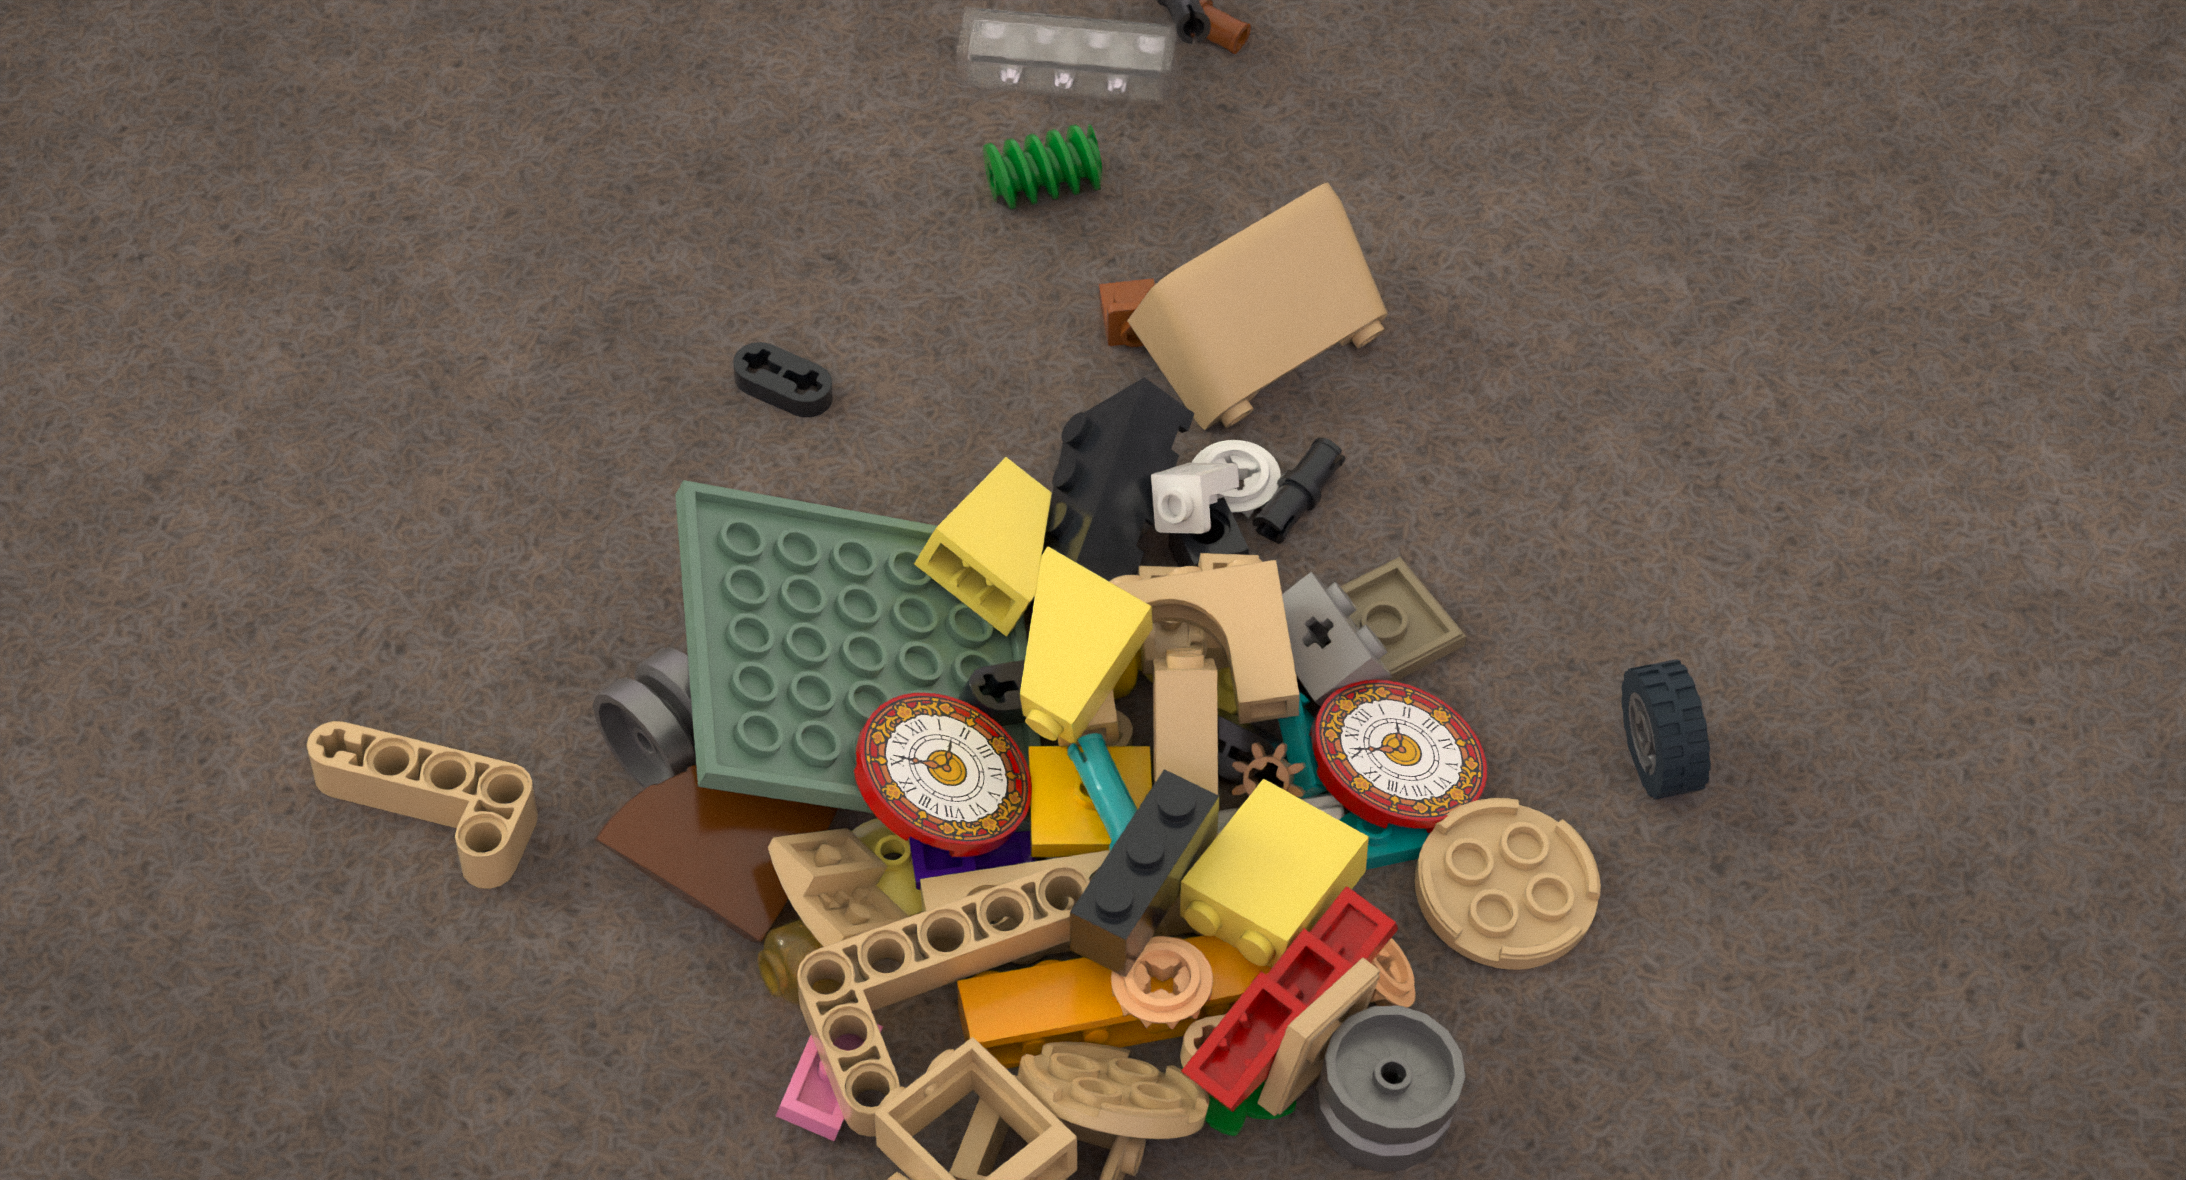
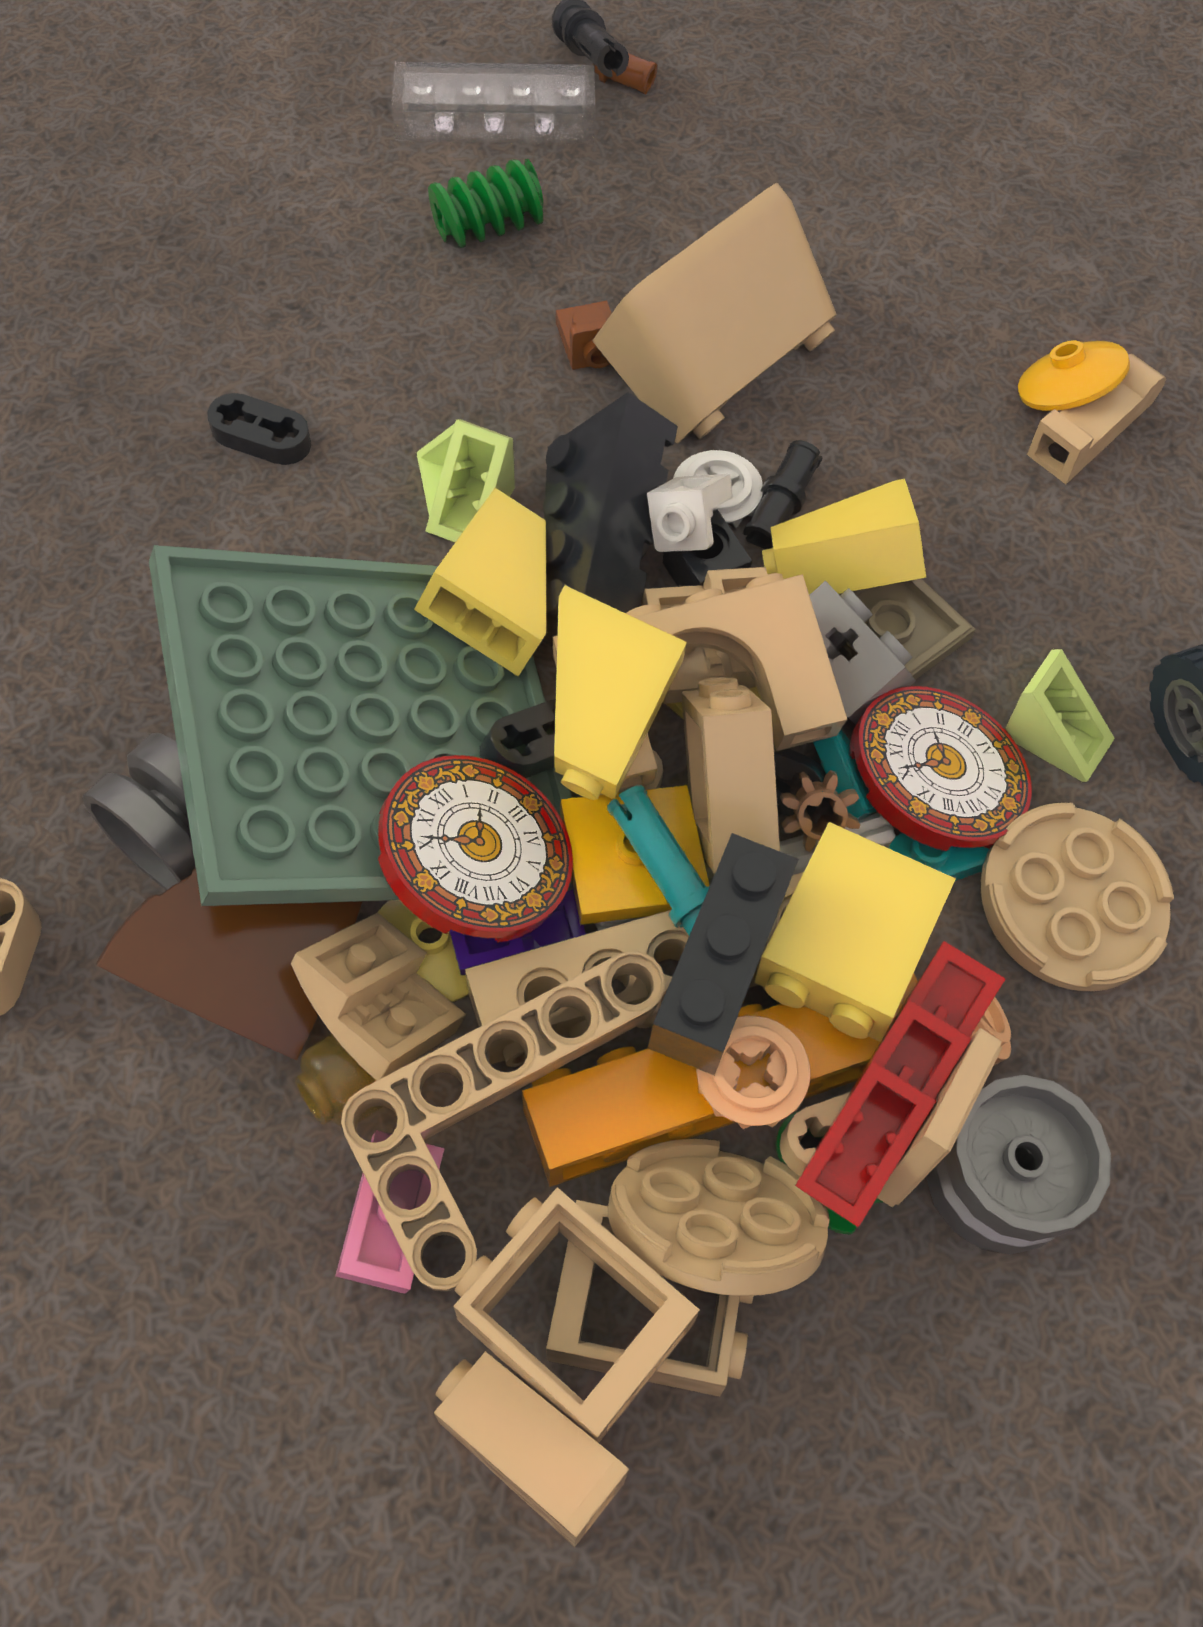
camera: 10 degrees left, 10 degrees up
(977, 438) = (460, 474): none -> yellowish green slope
(1352, 541) = (852, 542): none -> light yellow slope
(1525, 723) = (1060, 719): none -> yellowish green slope
(1622, 395) = (1073, 375): none -> yellow dish
(1639, 441) = (1093, 426): none -> tan leg

